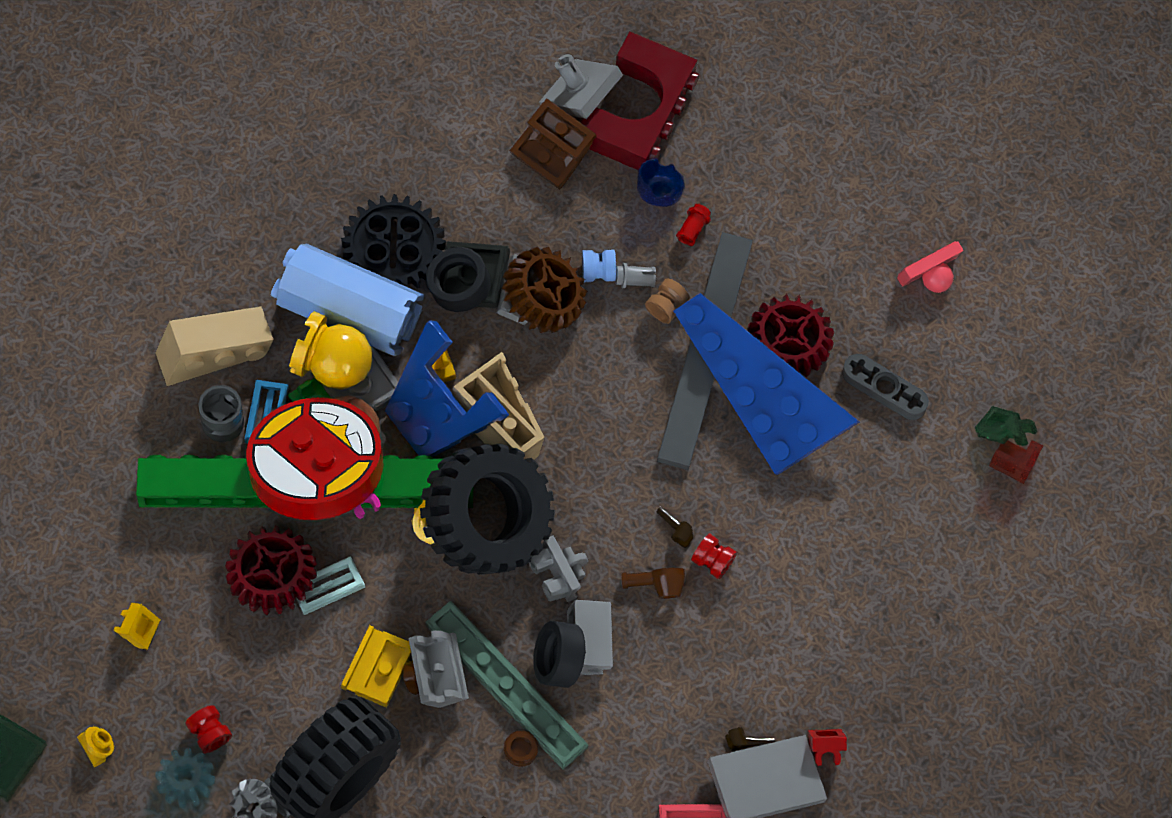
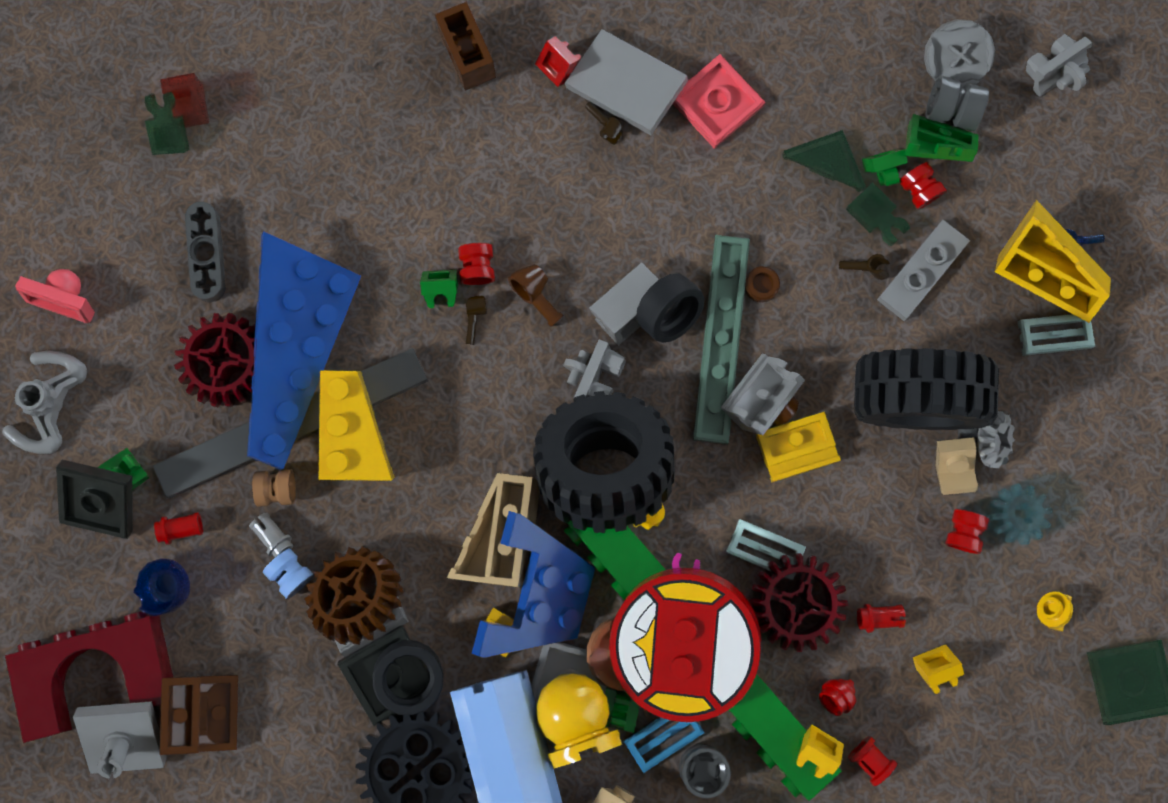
camera: 125 degrees left, 15 degrees up
(121, 528) = (872, 761): none -> red bush
(164, 486) = (821, 750): none -> yellow tile
(183, 546) = (838, 696): none -> red plate
(208, 619) = (880, 617): none -> red pin
(257, 760) = (956, 466): none -> tan bracket
(662, 371) = (348, 431): none -> yellow wedge
(721, 519) = (439, 282): none -> green tile
(757, 185) = (95, 499): none -> pearl dark grey plate
(764, 218) = (126, 464): none -> green tile
(860, 206) = (45, 400): none -> light grey piece
(893, 679) = (465, 46): none -> reddish brown brick

